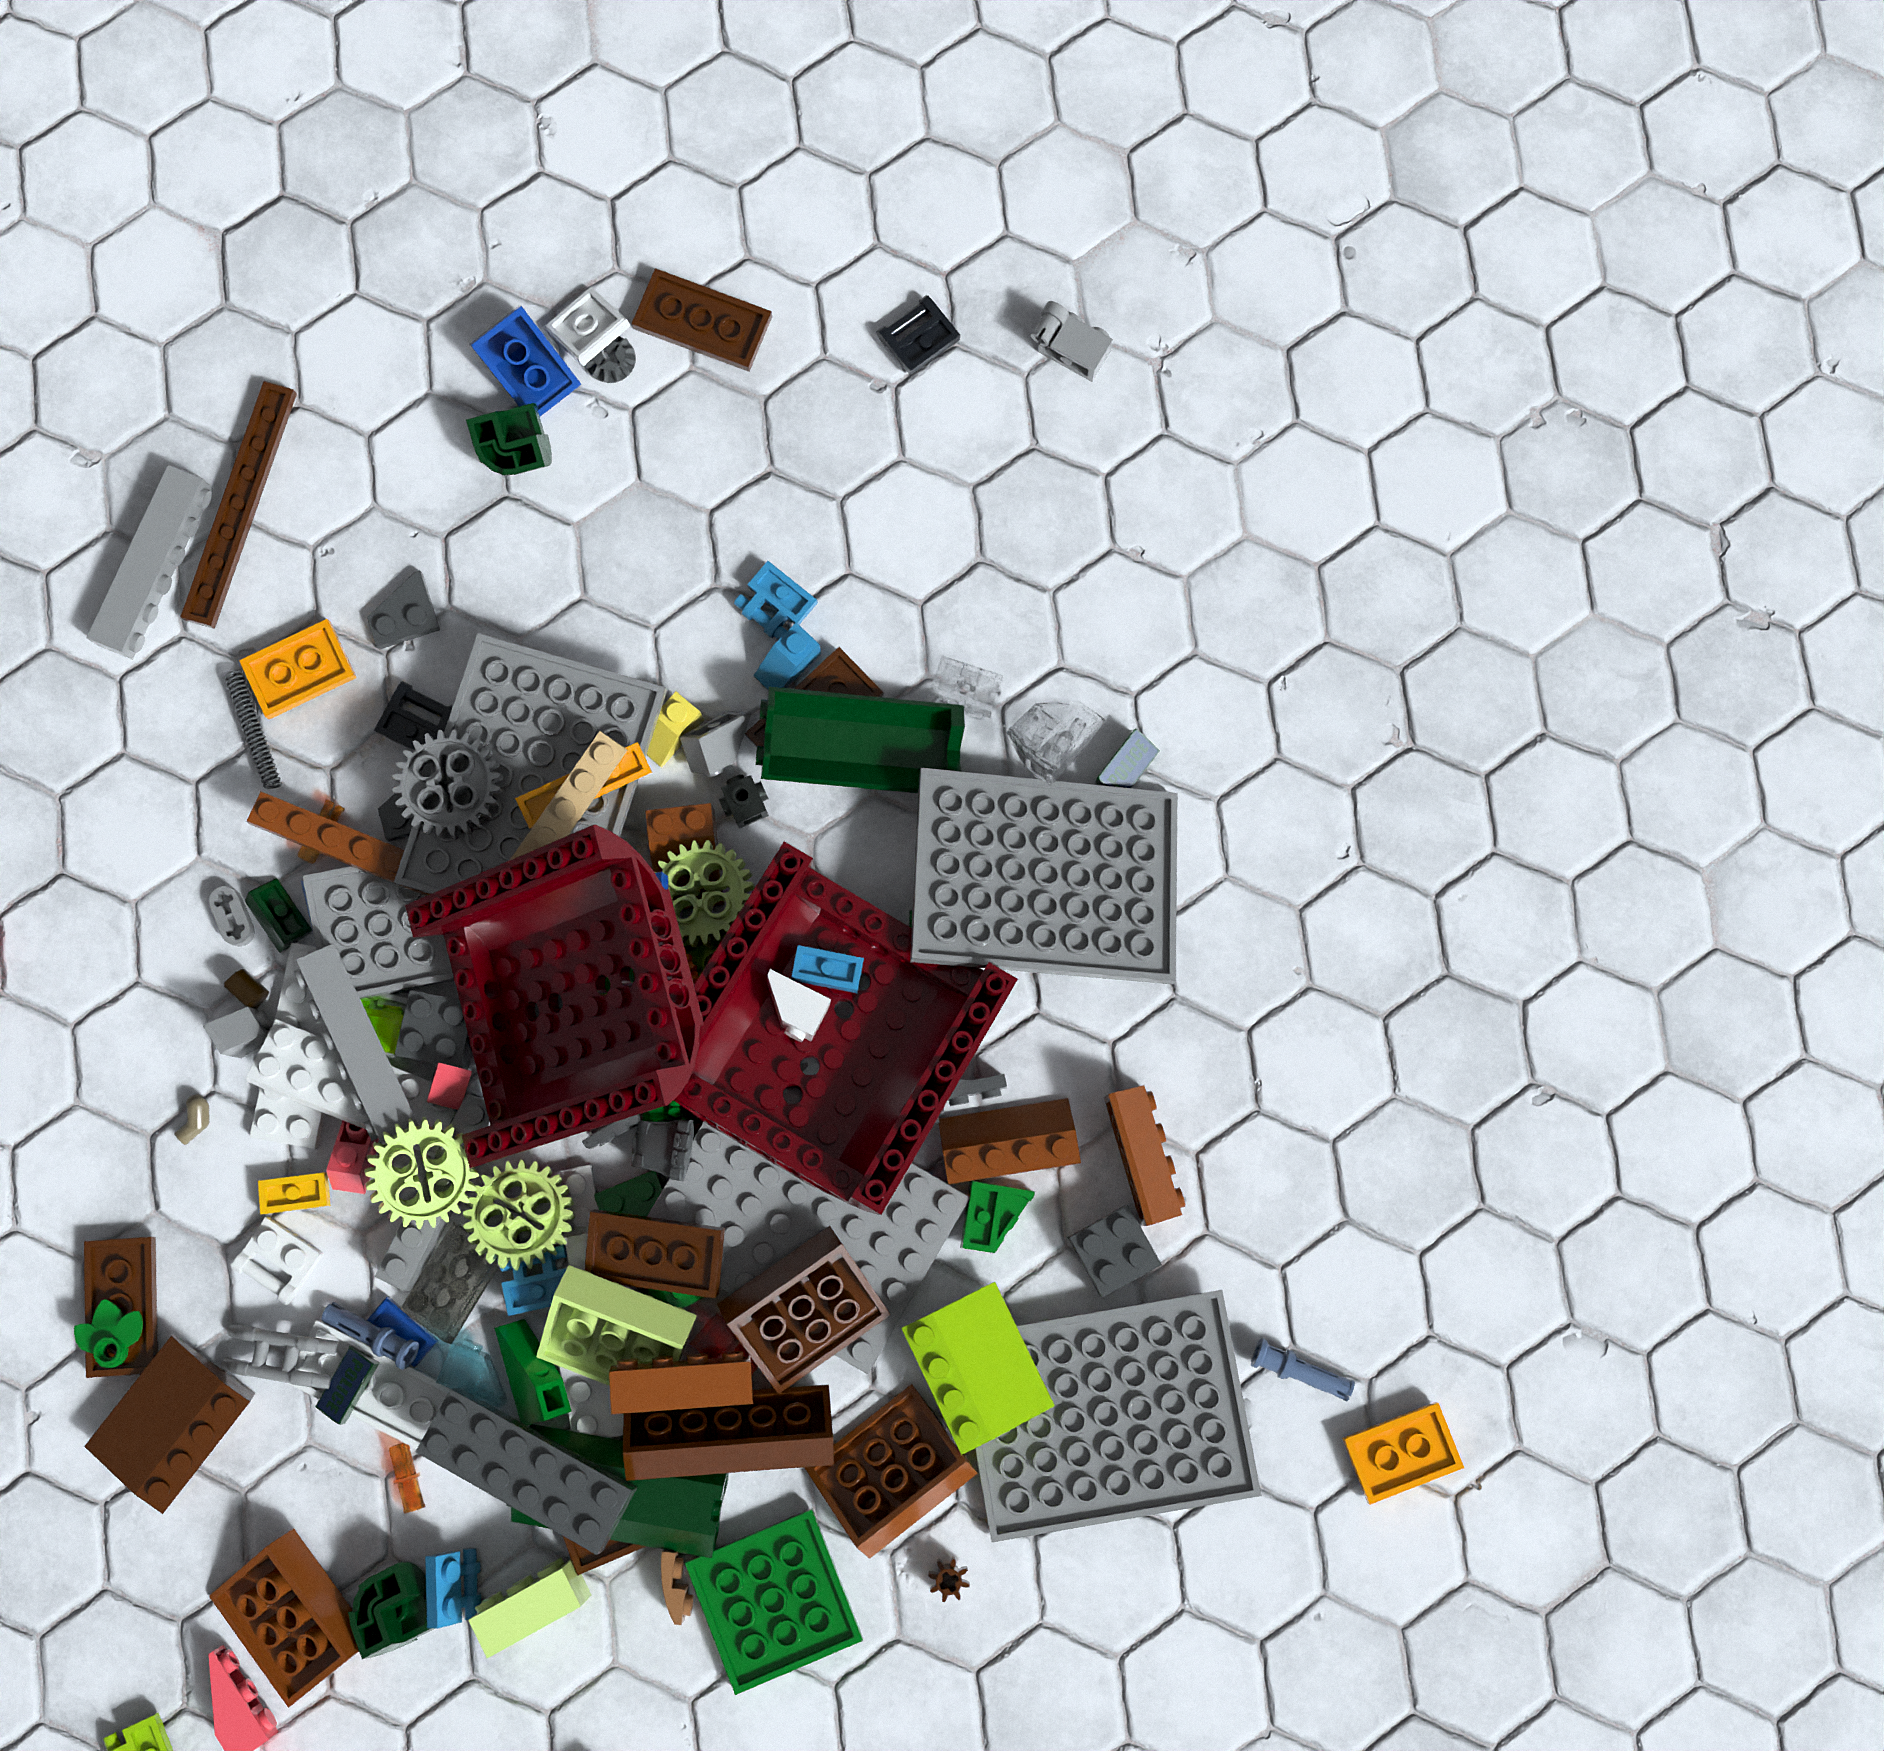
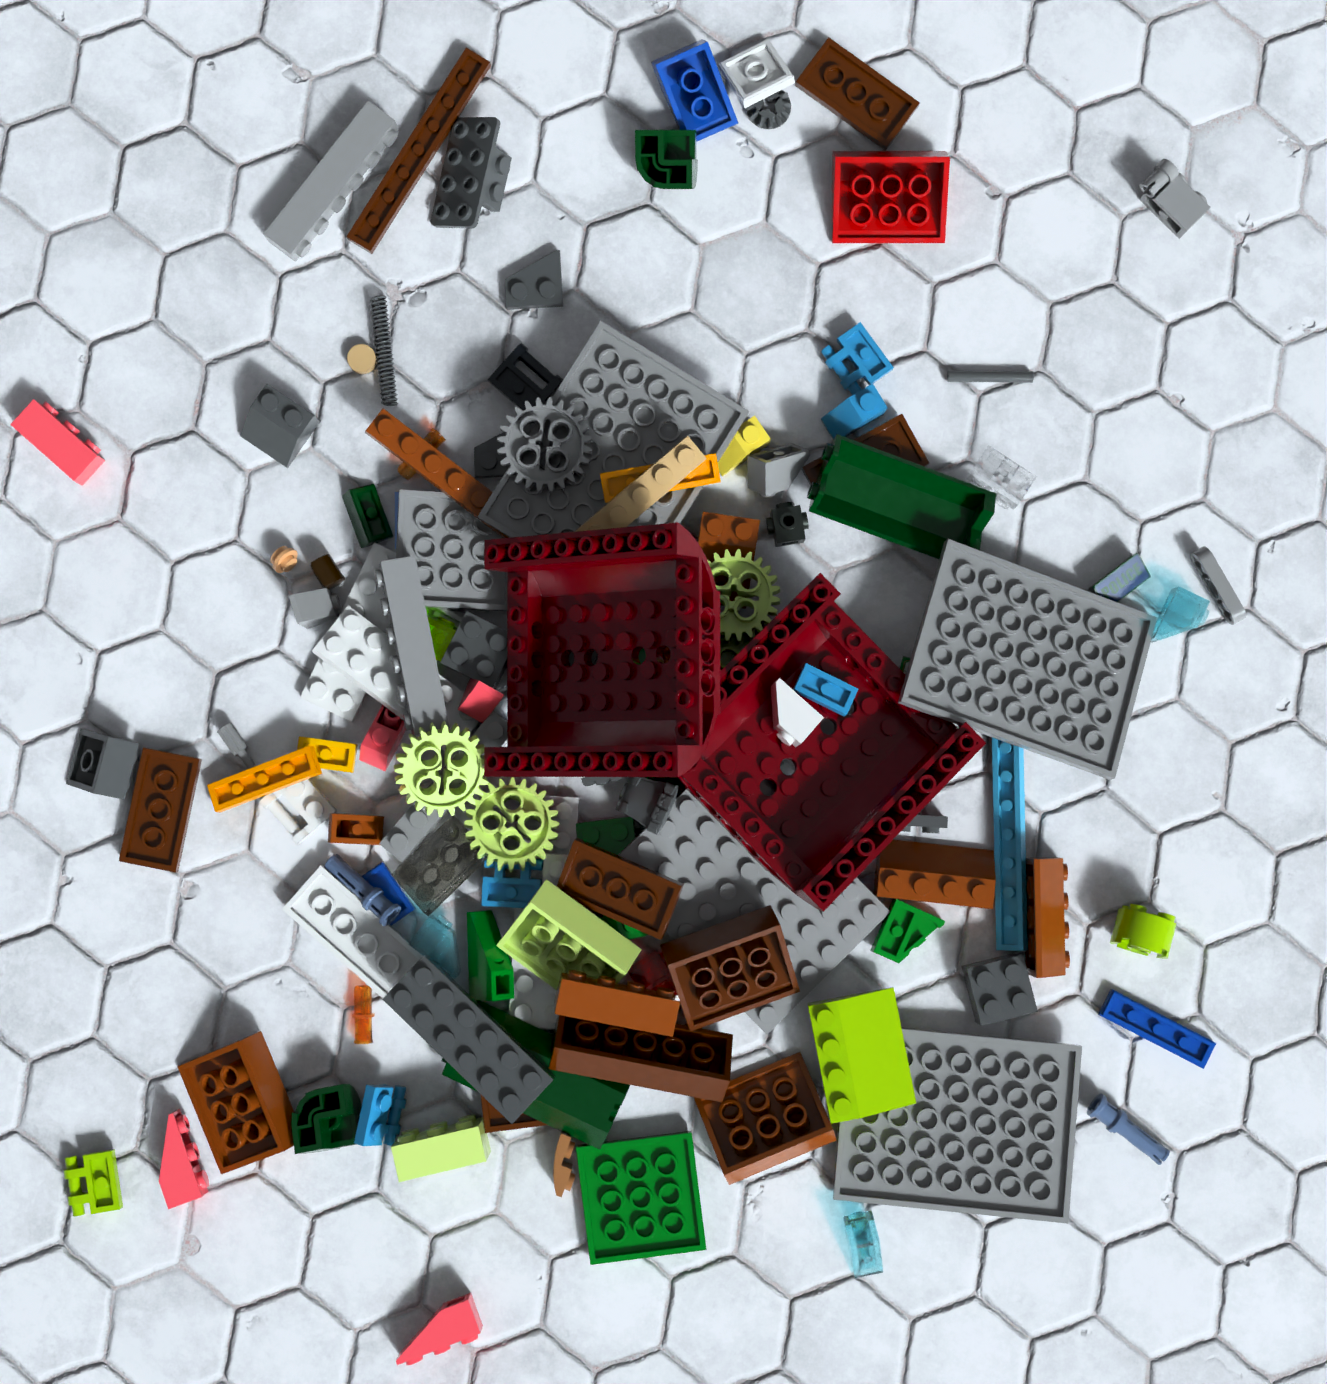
camera: 10 degrees right, 5 degrees up
(43, 1272) = (102, 764): none -> dark grey slope
(108, 1328) = (147, 825): green plate -> none
(153, 842) = (278, 425): none -> dark grey slope
(168, 1423) = (179, 917): reddish brown slope -> none
(192, 1211) = (235, 744): none -> light grey axle
(195, 988) = (284, 559): none -> light nougat plate
(197, 1119) = (260, 669): dark tan arm -> none
(224, 918) = (335, 506): light grey beam -> none
(229, 1239) = (264, 779): none -> light orange plate
(230, 745) = (362, 359): none -> tan tile
(288, 1372) = (287, 902): light grey piece -> none
(297, 669) = (435, 308): light orange plate -> none
(302, 514) = (471, 174): none -> dark grey bracket
(344, 1268) = (355, 829): none -> dark orange slope
(347, 1385) = (333, 926): slope -> none
(765, 419) = (889, 196): none -> red slope
(924, 342) = (1045, 165): black plate -> none
(926, 581) = (990, 376): none -> dark grey bar
(951, 1569) = (781, 1221): reddish brown gear -> none
(1039, 1584) = (863, 1244): none -> clear light blue slope
(1053, 736) = (1065, 540): clear wedge -> none
(1083, 1089) = (1009, 846): none -> medium azure plate
(1202, 783) = (1180, 613): none -> clear light blue slope
(1234, 740) = (1218, 585): none -> light grey beam
(1255, 1142) = (1142, 931): none -> lime brick
(1303, 1248) = (1157, 1028): none -> blue tile
(1403, 1453) = (1193, 1219): light orange plate -> none

